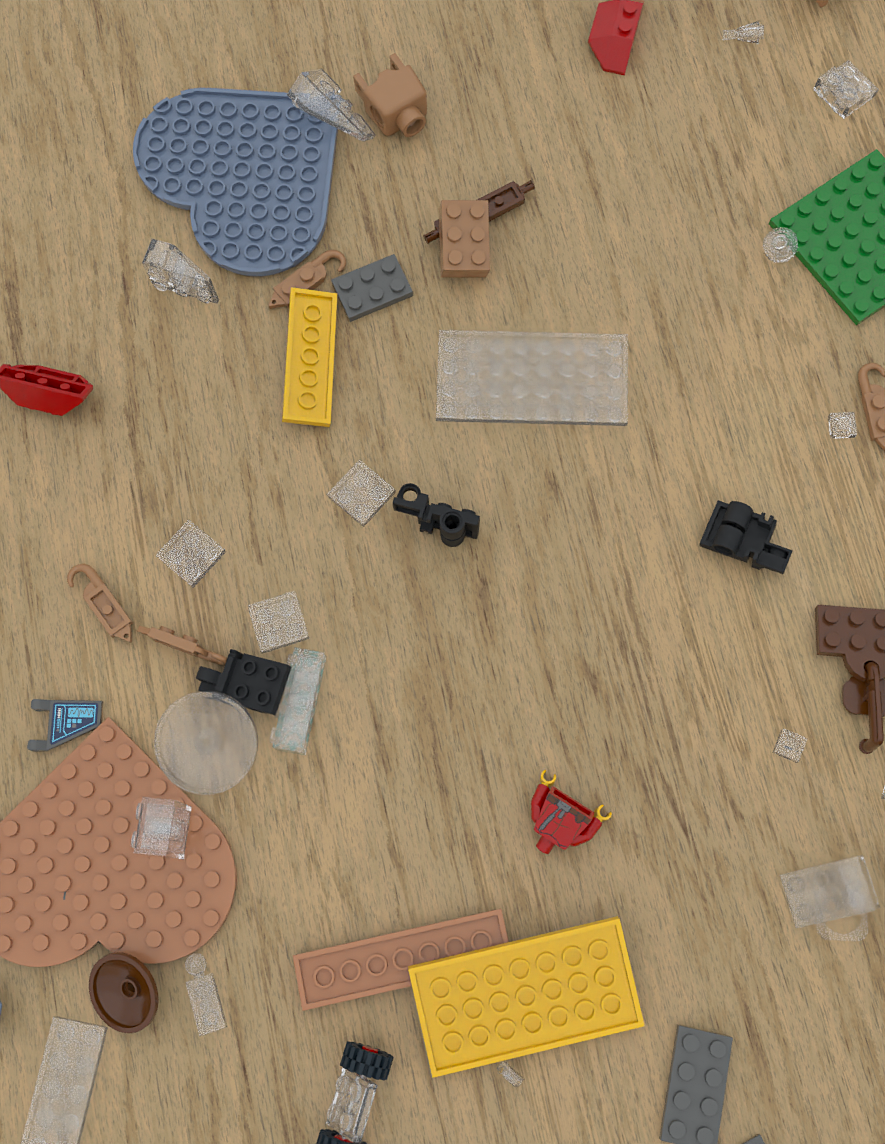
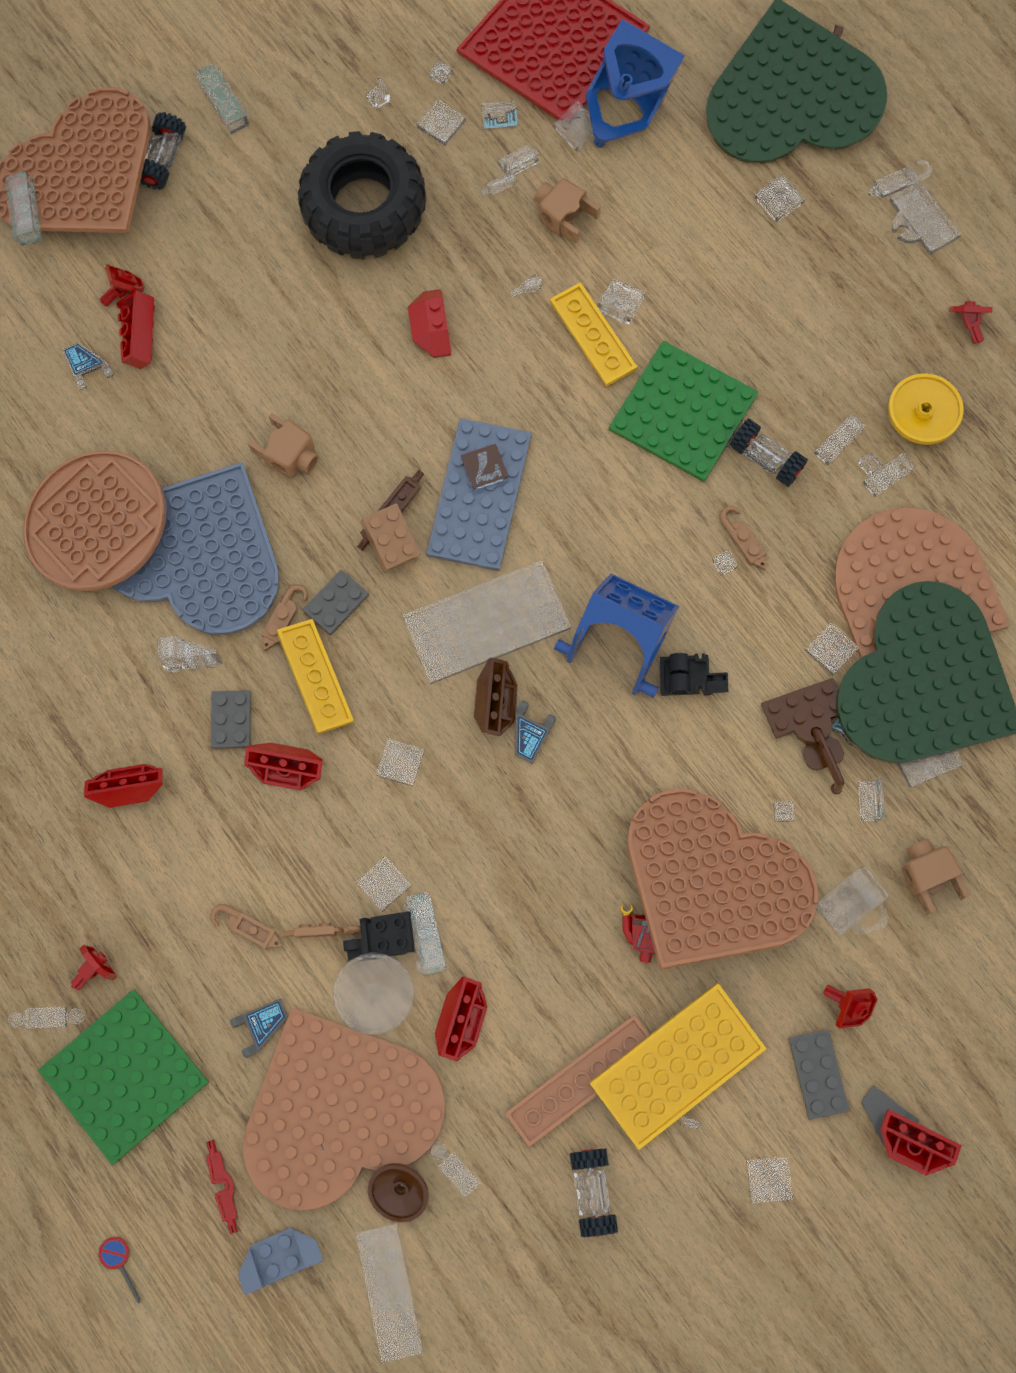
camera: 25 degrees left, 0 degrees up
(151, 94) = (94, 520): none -> nougat plate
(161, 828) = (375, 1065): clear brick -> none
(190, 553) = (295, 862): clear plate -> none
(196, 367) = (230, 719): none -> dark grey plate
(227, 439) = (283, 765): none -> red wedge
(292, 820) = (460, 1019): none -> red wedge
(320, 97) = (230, 472): clear wedge -> none
(451, 522) = (465, 756): black plate -> none
(503, 465) = (495, 698): none -> reddish brown wedge
(525, 524) = (530, 734): none -> flag
(587, 236) = (472, 523): none -> sand blue plate
(607, 205) = (484, 467): none -> reddish brown tile
(663, 798) = (710, 885): none -> nougat plate
(718, 435) = (633, 609): none -> blue piece
(779, 1024) = (854, 1004): none -> red piece
(780, 245) = (624, 444): clear plate -> none
(797, 112) = (593, 334): none -> yellow plate

